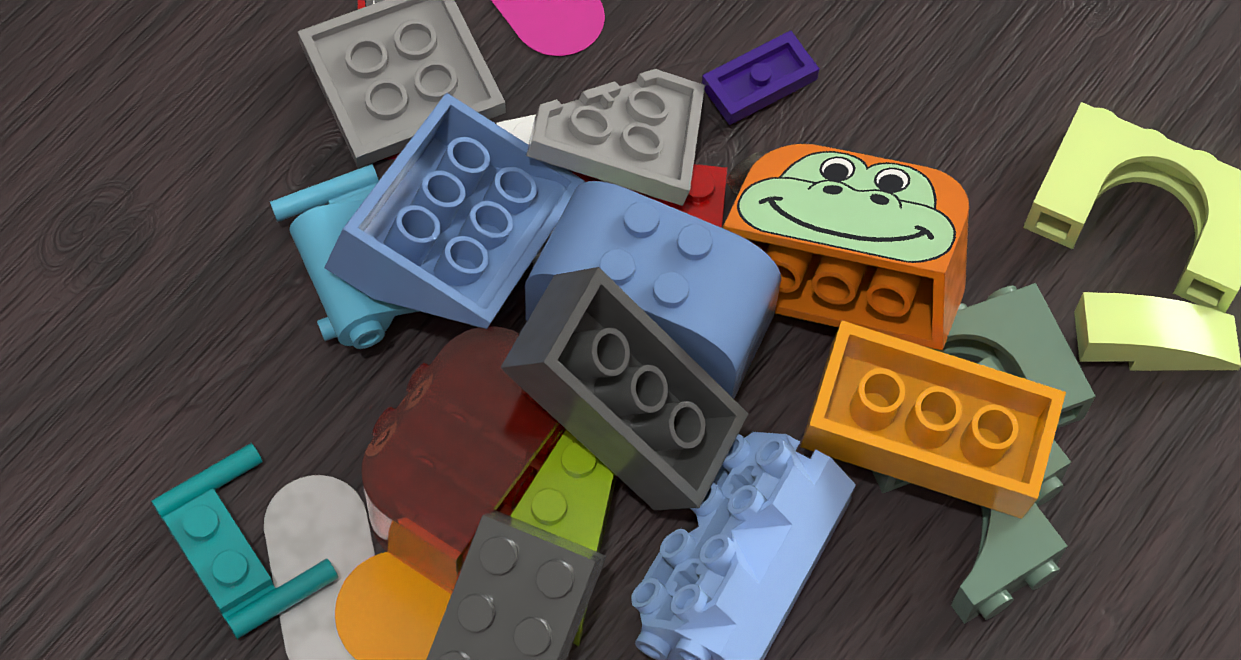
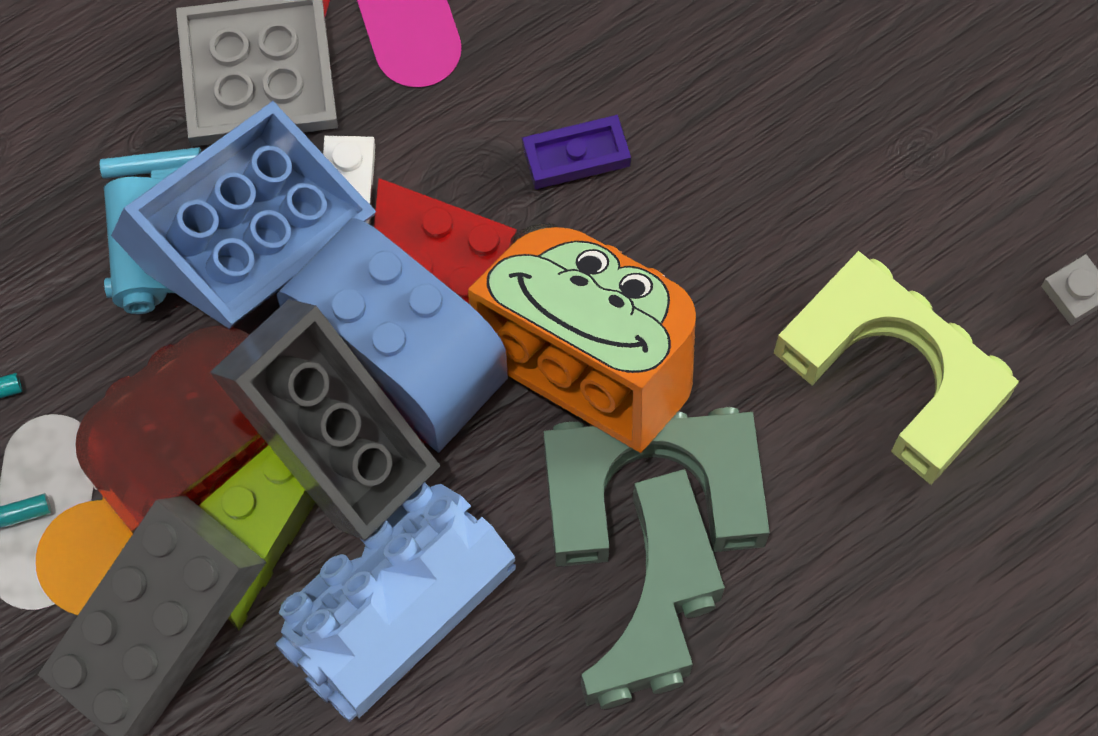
camera: 20 degrees right, 5 degrees up
(626, 134) = (427, 176): light grey plate -> none
(934, 420) = (600, 516): light orange brick -> none
(1155, 333) = (856, 487): yellowish green slope -> none

